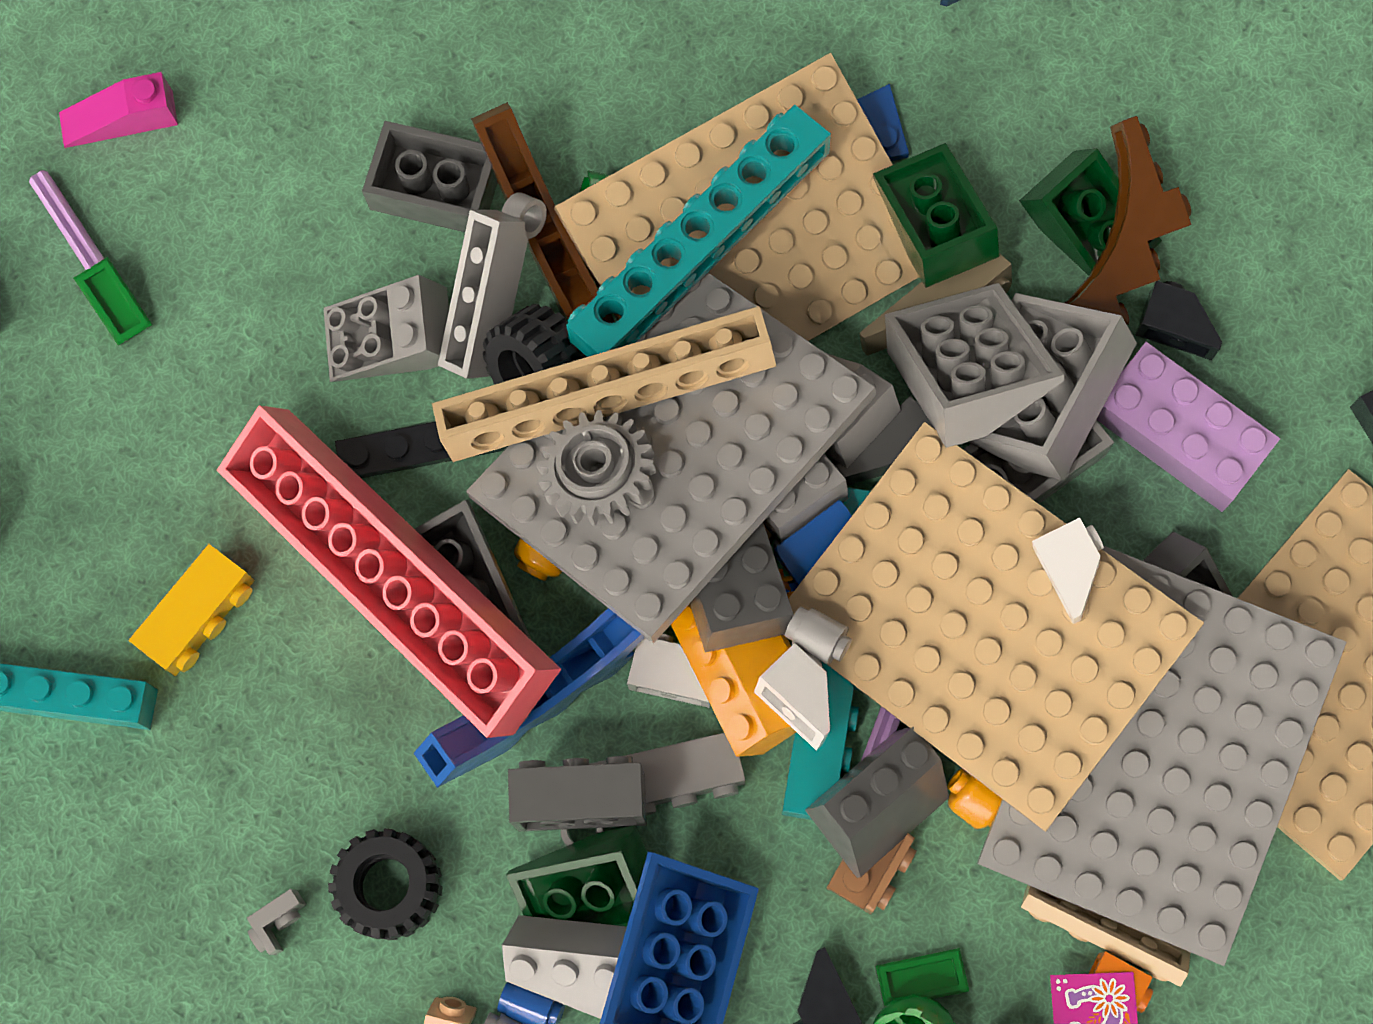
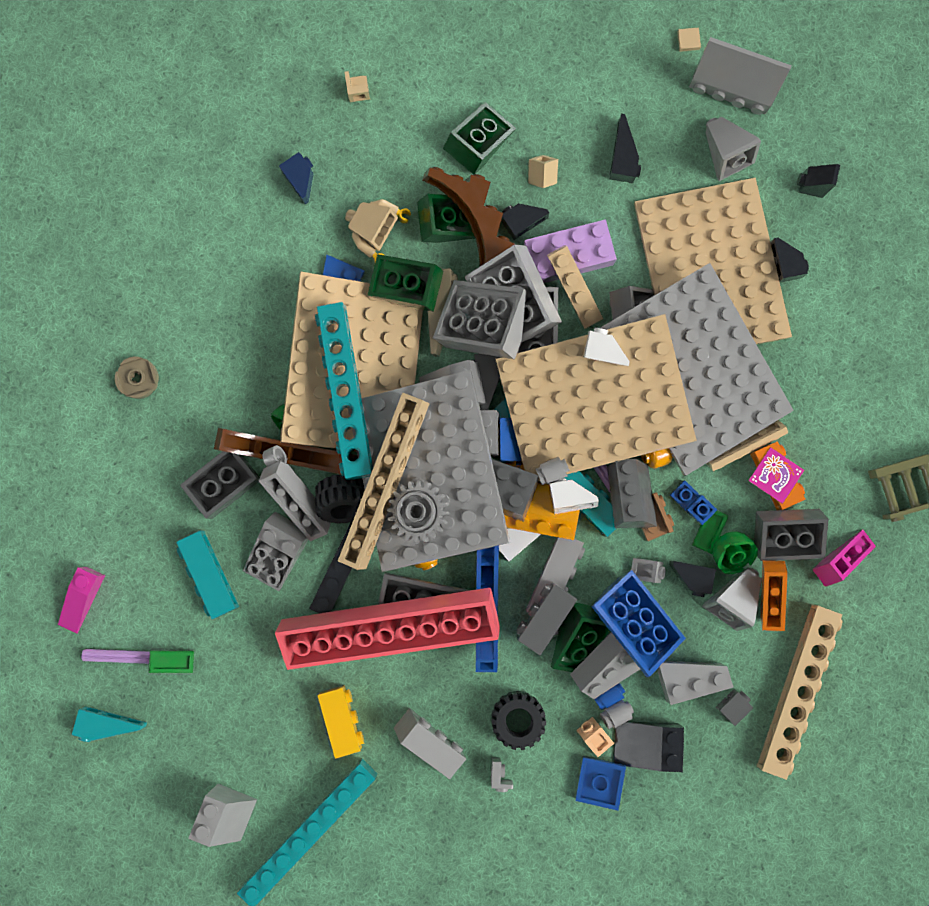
camera: 55 degrees left, 10 degrees up
(250, 772) = (429, 744): none -> light grey wedge
(279, 259) = (207, 574): none -> teal brick
(780, 922) = (648, 570): none -> light grey bracket
(945, 915) = (693, 503): none -> blue slope
(988, 113) = (373, 224): none -> tan torso
(1138, 468) = (574, 286): none -> tan plate
(1245, 167) = (478, 138): none -> dark green slope
(1276, 298) = (543, 171): none -> tan panel

